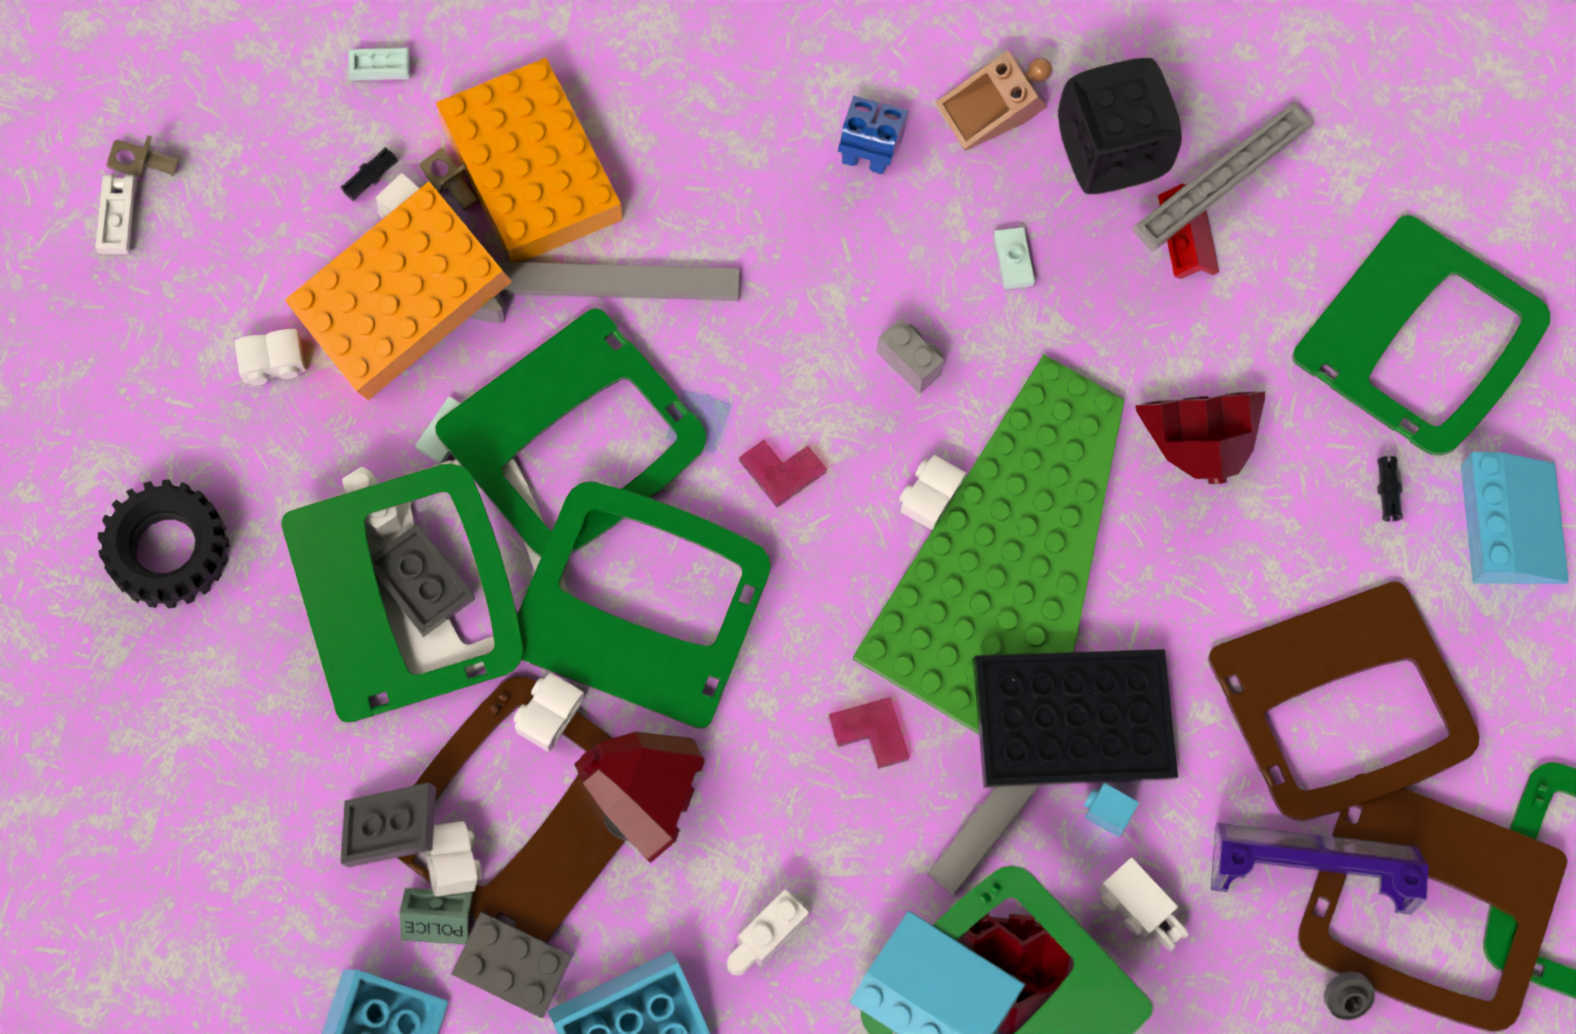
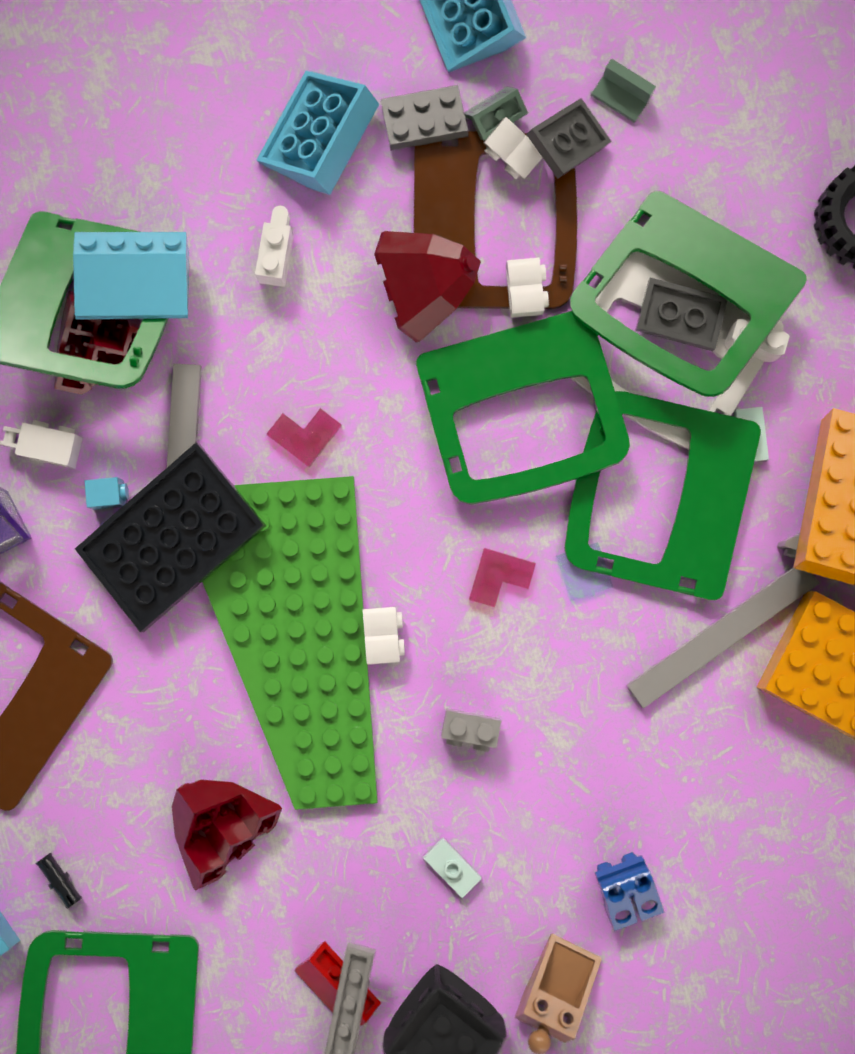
camera: 145 degrees right, 15 degrees up
(292, 844) = (623, 90): none -> sand green panel

